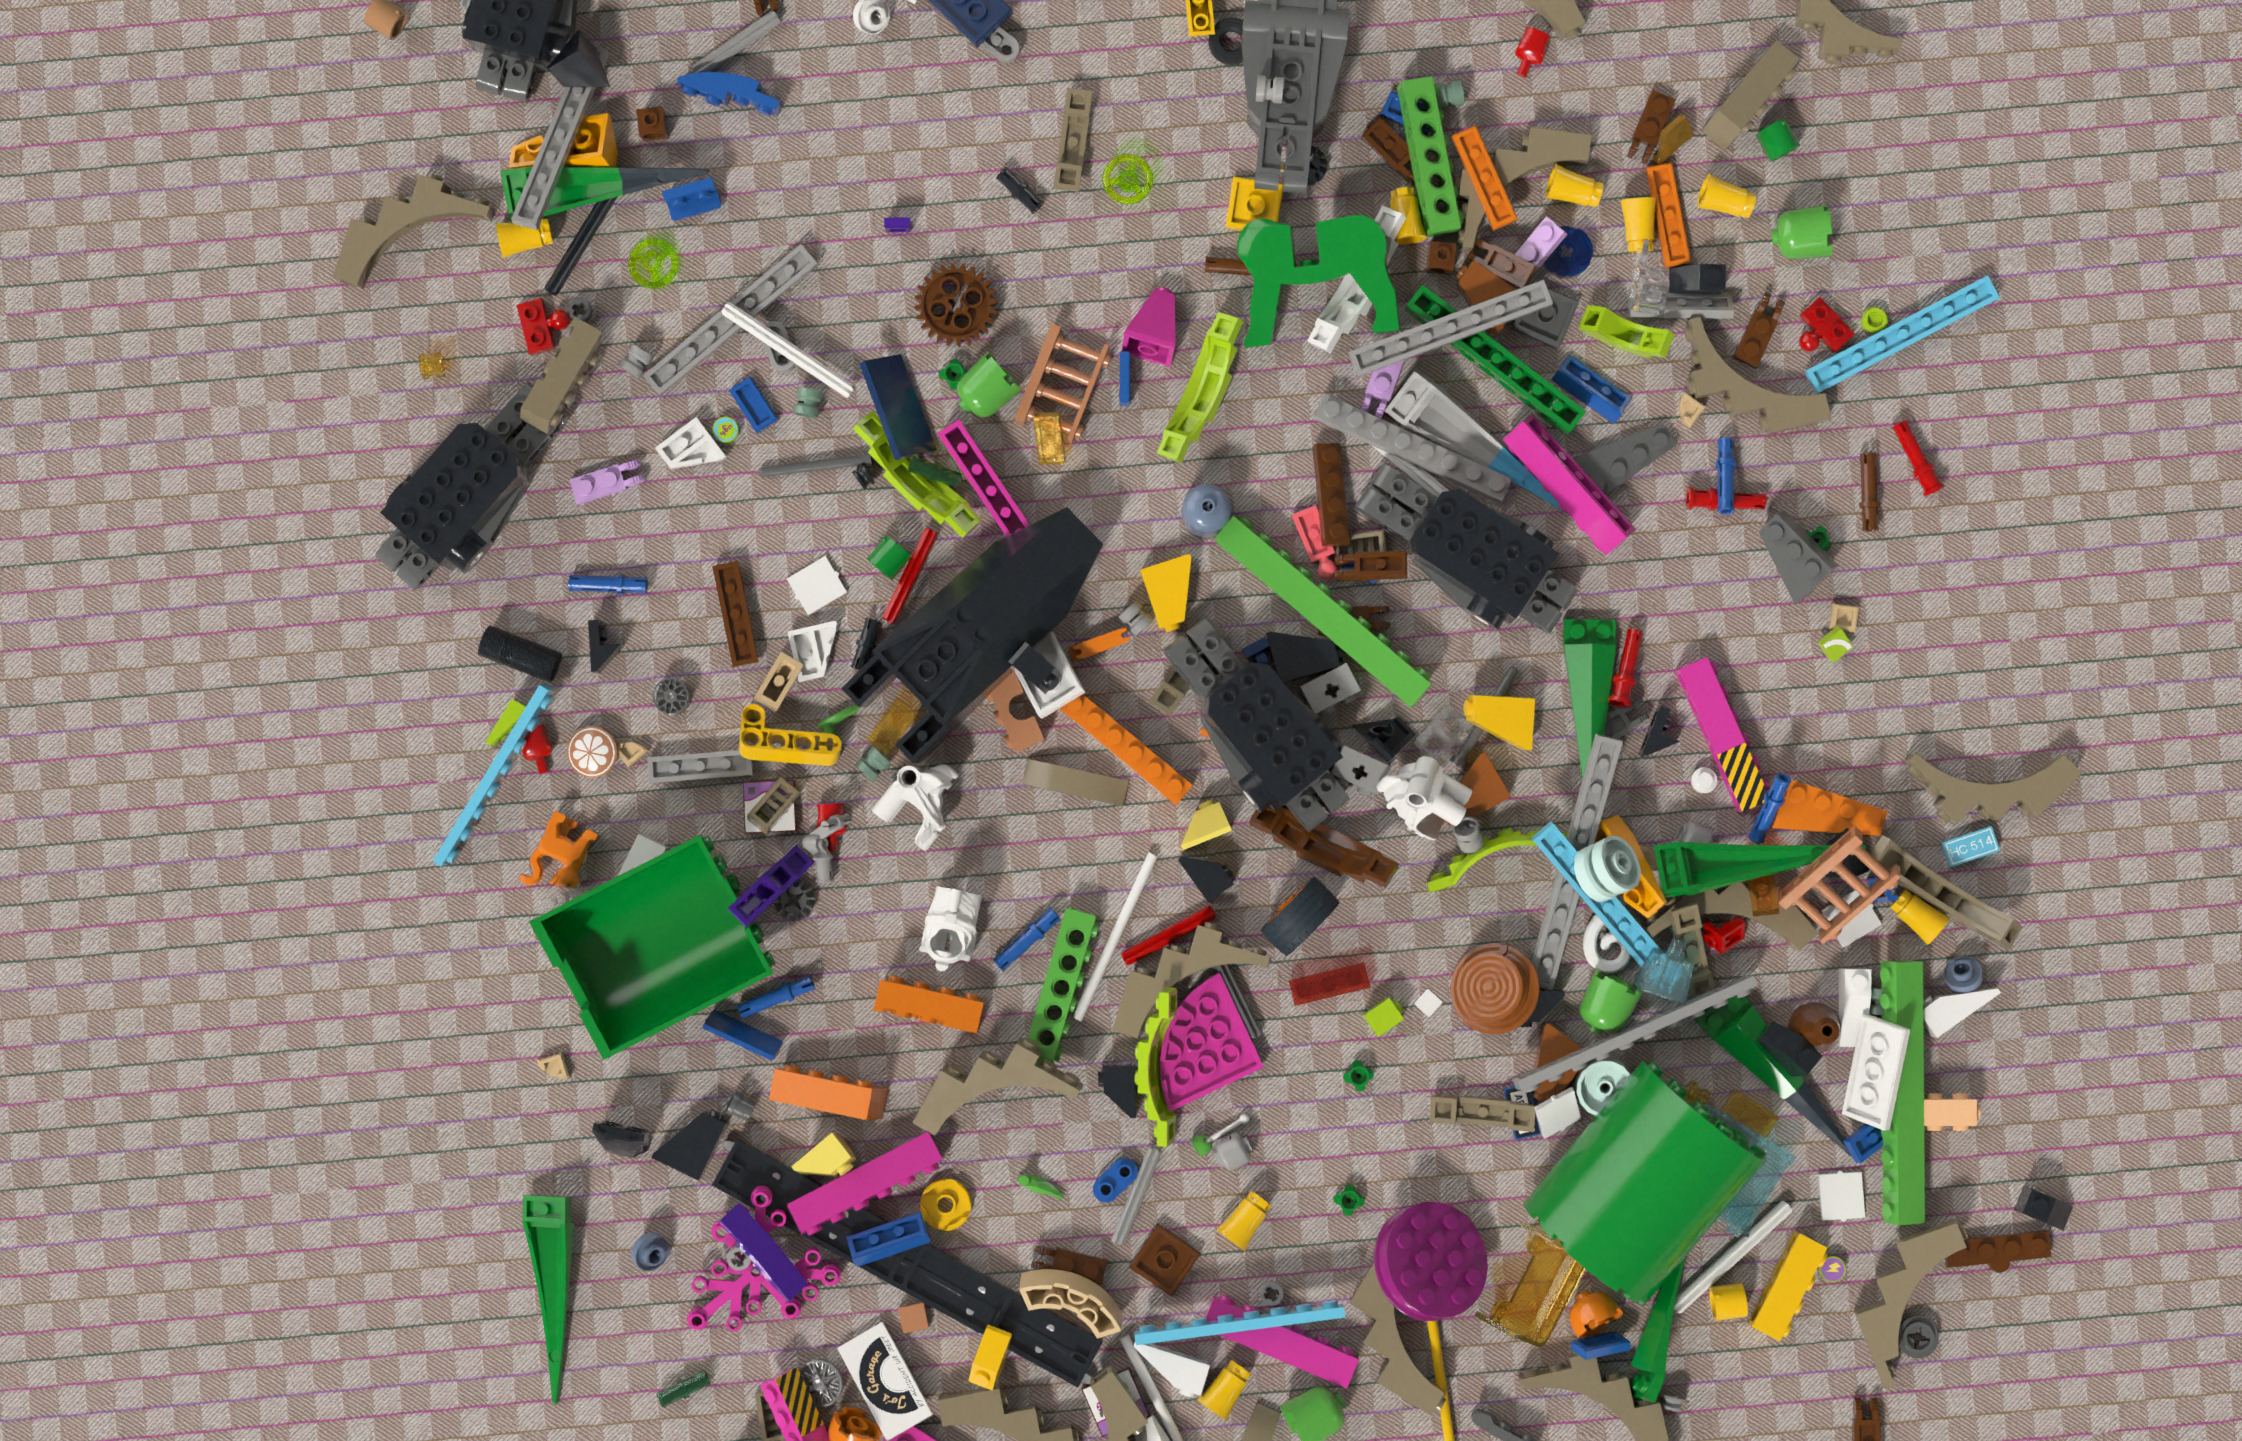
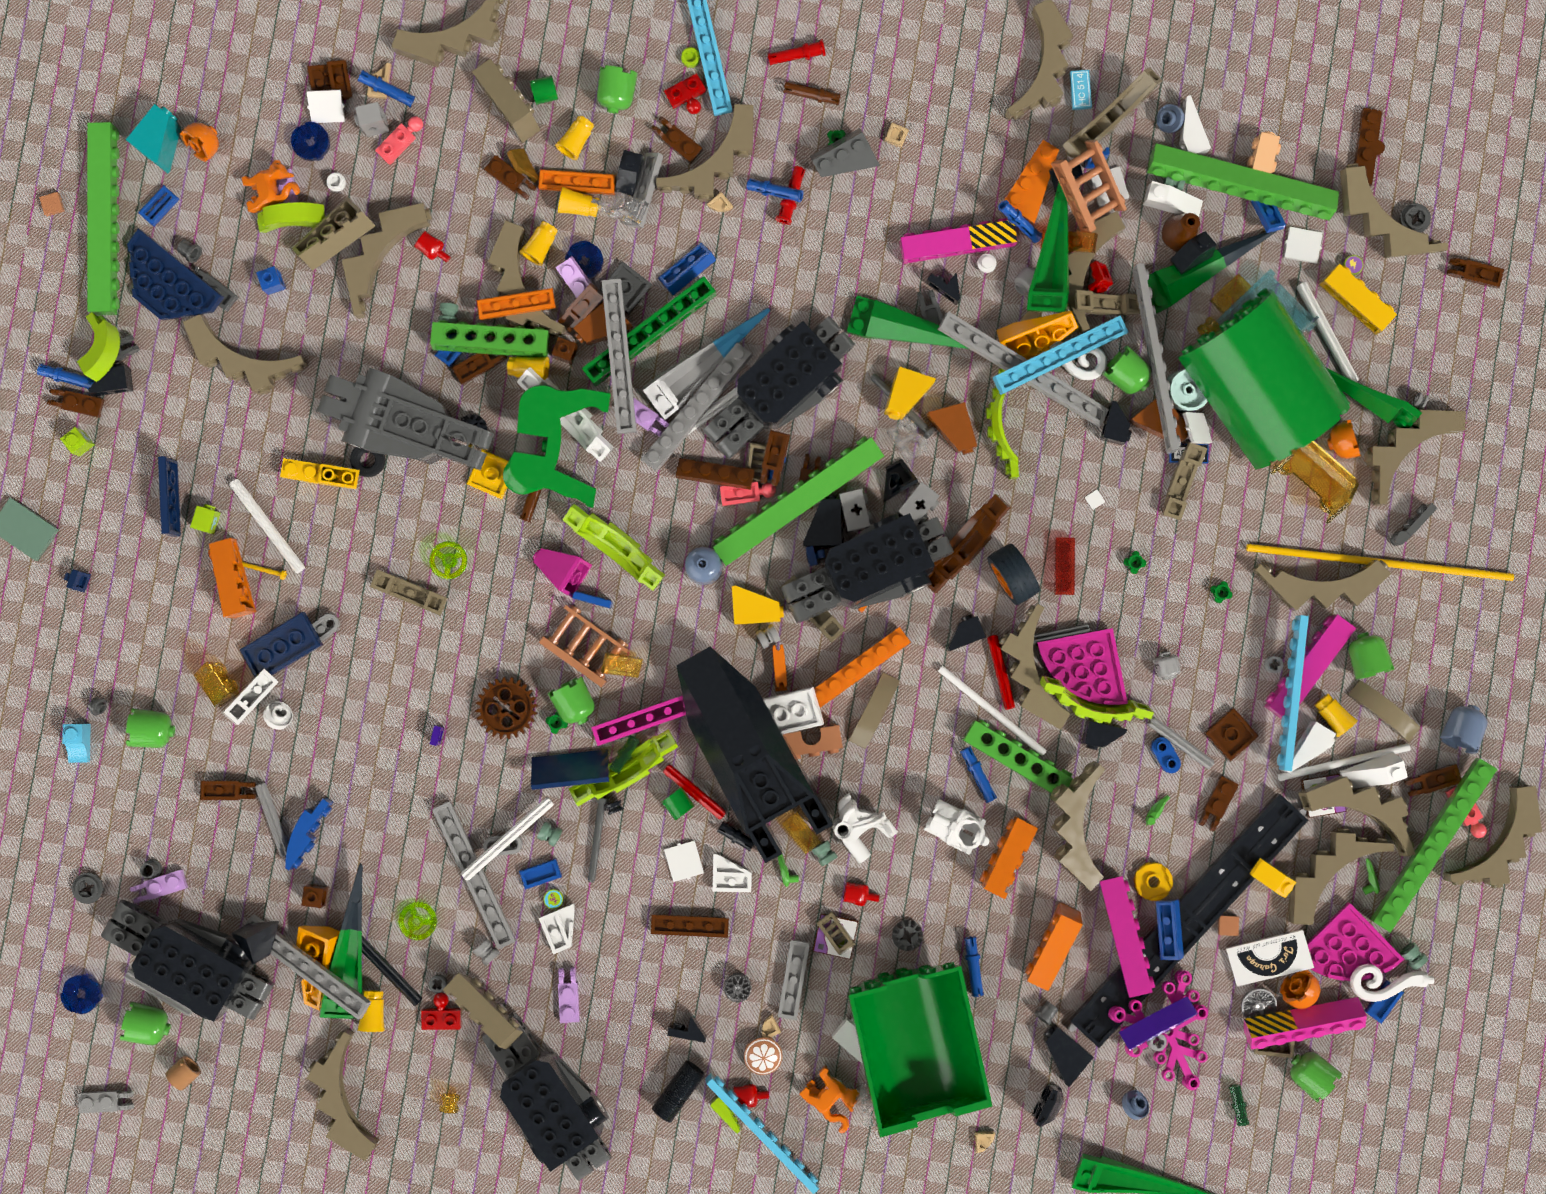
camera: 80 degrees left, 0 degrees up
(608, 584) = (646, 1005): blue pin -> none
(692, 199) = (378, 880): blue bracket -> none
(742, 1035) = (995, 997): blue slope -> none
(770, 886) = (895, 951): dark purple slope -> none
(778, 682) = (747, 907): tan slope -> none
(788, 739) = (791, 910): yellow beam -> none
(817, 844) = (872, 908): light grey pin -> none
(827, 1158) = (1102, 957): light yellow slope -> none
(1019, 190) = (435, 640): black pin -> none
(1035, 668) = (788, 718): black slope -> none
(1073, 1292) = (1240, 806): tan brick -> none
(1203, 1143) = (1155, 685): hinge -> none
(1206, 824) = (930, 625): light yellow slope -> none
(1245, 1220) = (1218, 670): yellow plant -> none
(1269, 89) = (411, 439): light grey wheel -> none
(1384, 1016) = (1097, 533): lime brick -> none
(1425, 797) = (950, 462): white helmet -> none
(1430, 1261) = (1282, 545): magenta wheel -> none
(1468, 835) = (985, 439): light grey wheel -> none
(1495, 988) = (1098, 449): dark orange piece -> none
(1569, 484) = (752, 302): dark pink brick -> none
(1600, 1345) = (1369, 440): blue tile -> none
(1607, 868) = (1037, 346): light aqua wheel -> none
(1622, 459) = (745, 267): dark grey wing -> none
(1624, 334) = (655, 234): lime arch -> none
(1625, 678) = (901, 300): red pin -> none
(1666, 973) = (1118, 325): clear light blue torso -> none
(1728, 1301) = (1359, 343): yellow piece -> none
(1835, 644) = (914, 145): lime tile -> none
(1875, 1072) = (1225, 196): white tile -> none
(1919, 916) = (1122, 137): yellow plant -> none
(2043, 1208) = (1346, 107): black slope -> none

